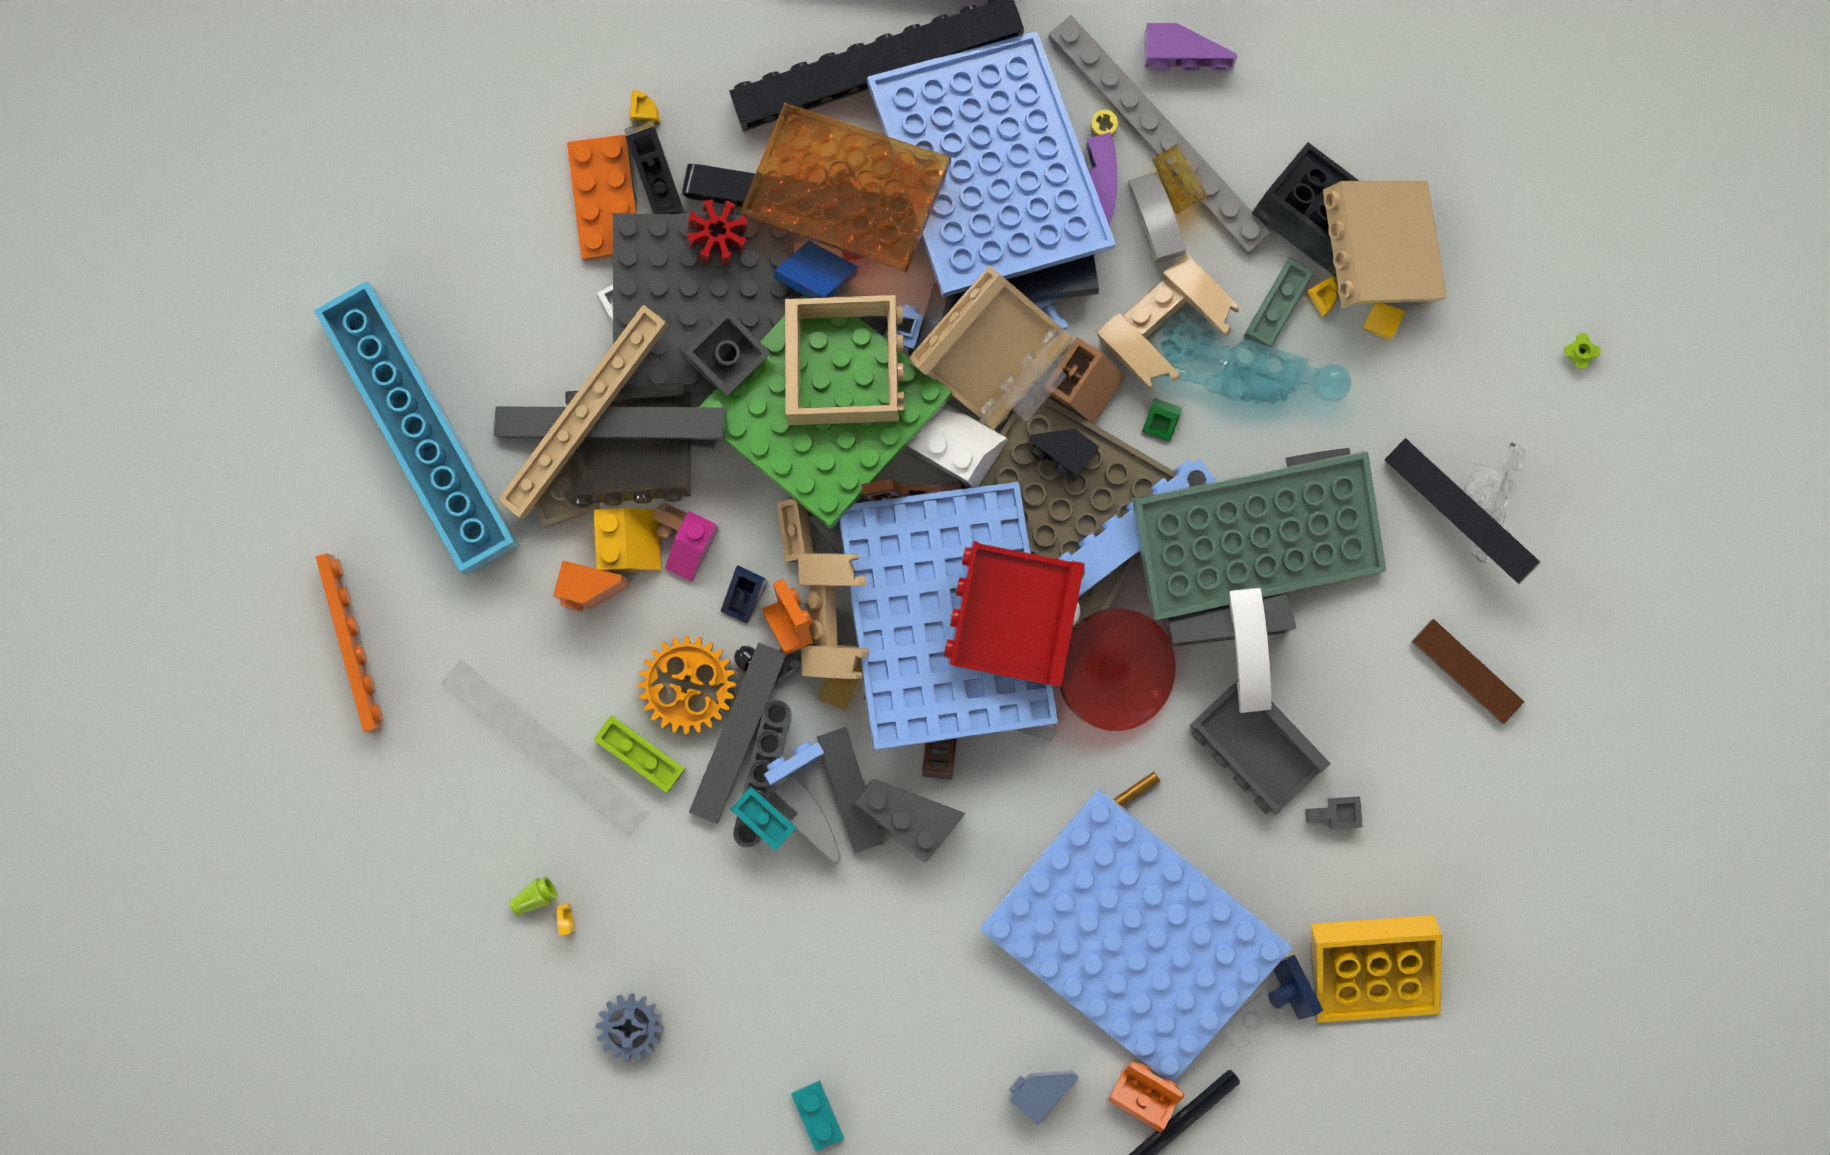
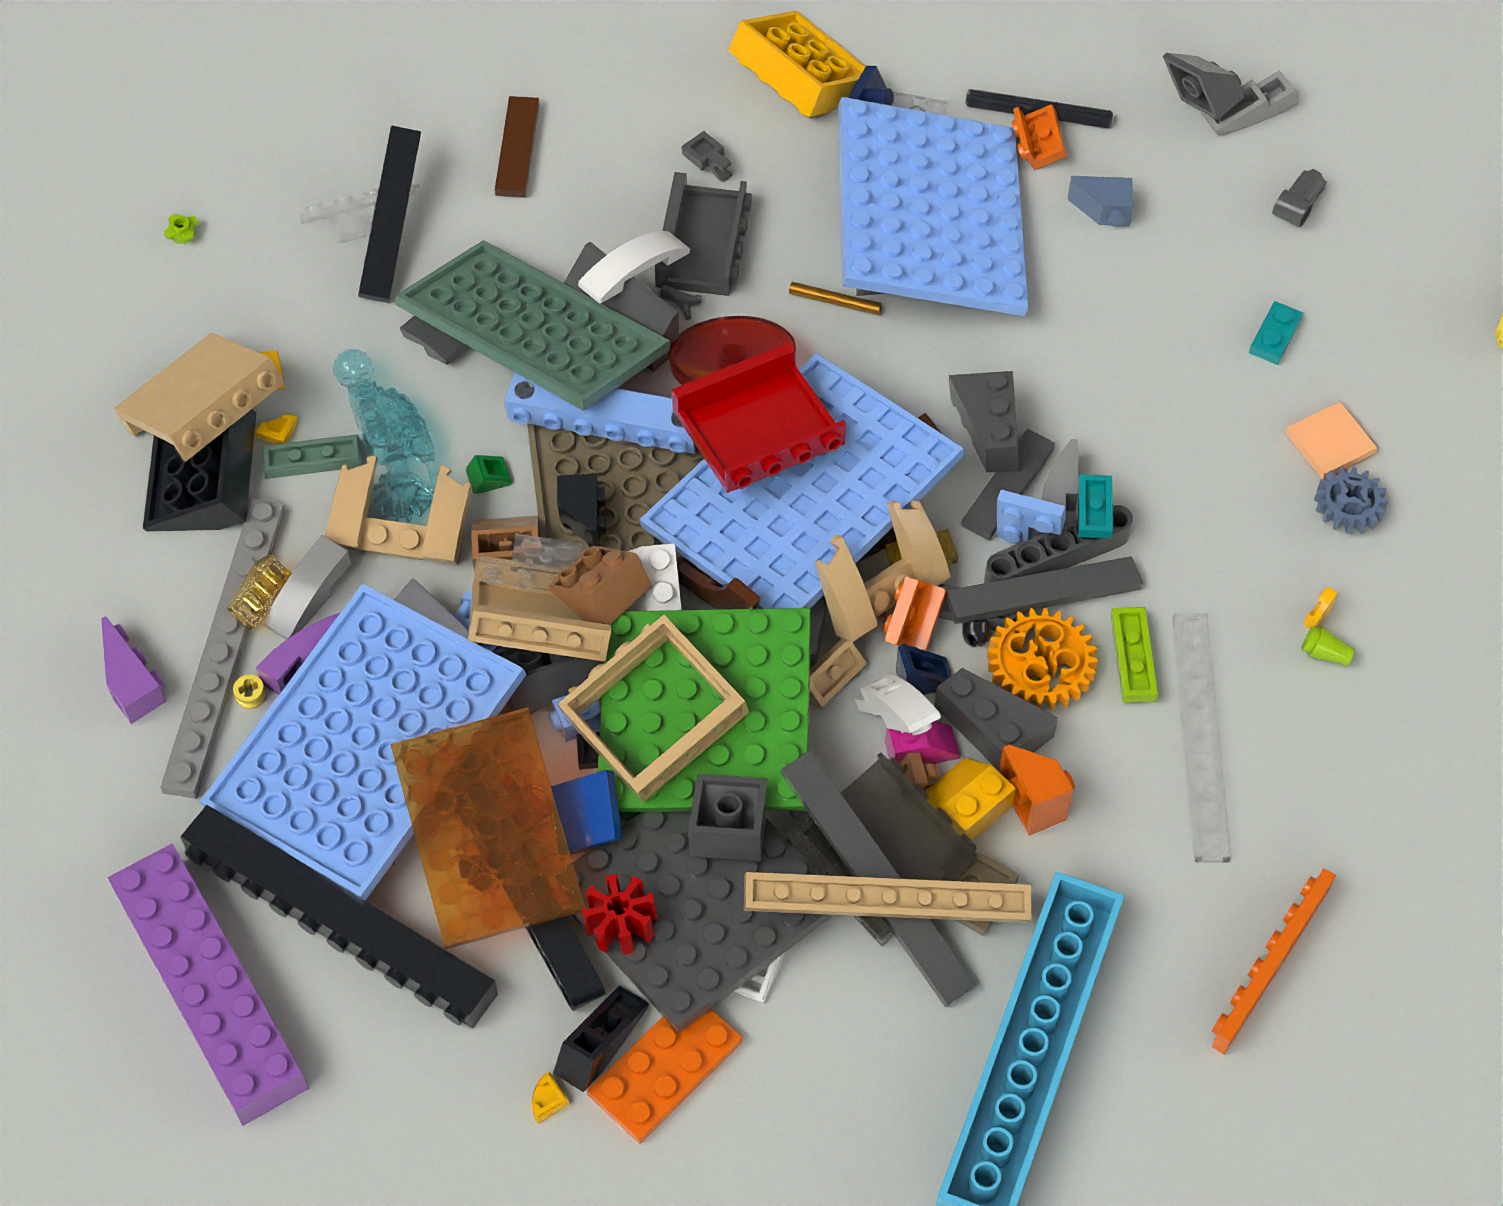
camera: 135 degrees left, 25 degrees down
(666, 607) = (992, 716): none -> dark grey wedge
(693, 1066) = (1331, 440): none -> light nougat tile
(714, 532) = (898, 704): none -> white slope
(974, 401) = (601, 584): none -> medium nougat slope
(1208, 683) = (680, 298): none -> dark grey bar

